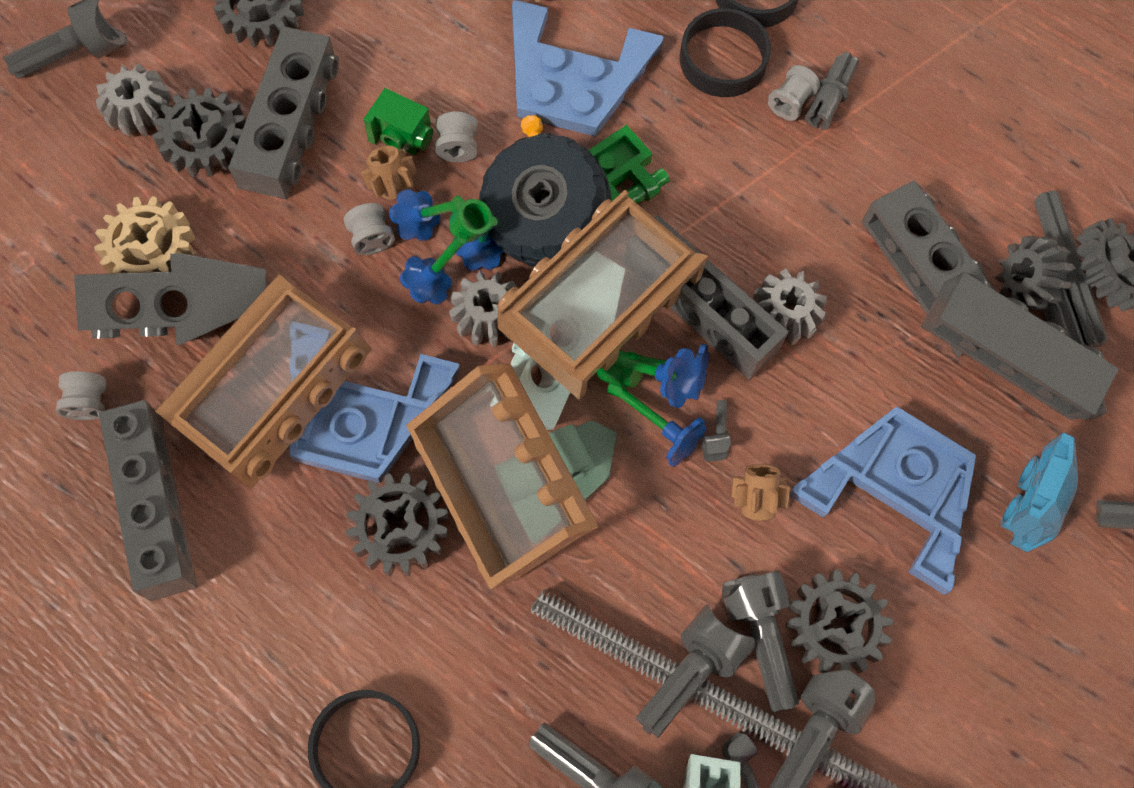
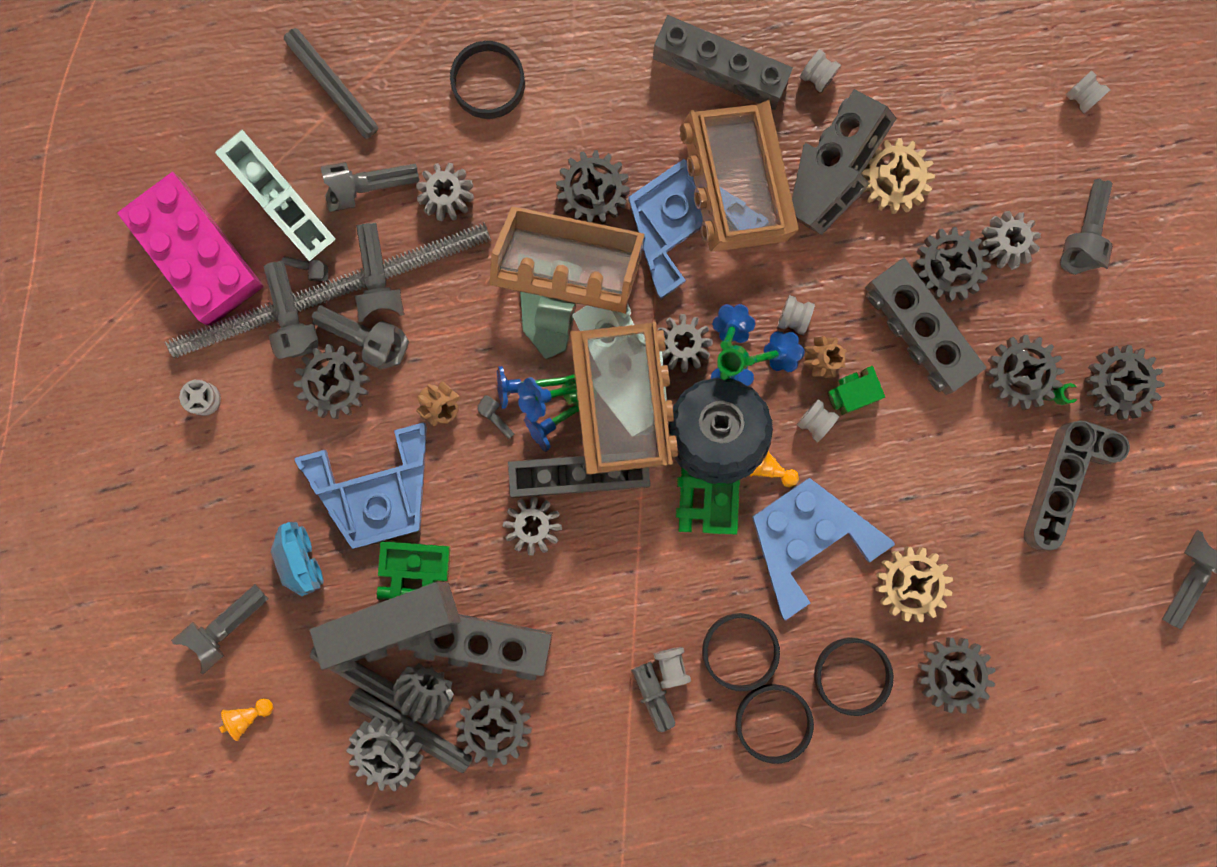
camera: 135 degrees right, 15 degrees up
(547, 670) = (442, 203): none -> light grey gear
(927, 387) = (412, 562): none -> green plate
(998, 197) = (492, 742): none -> dark grey gear
(998, 752) = (193, 393): none -> light grey wheel

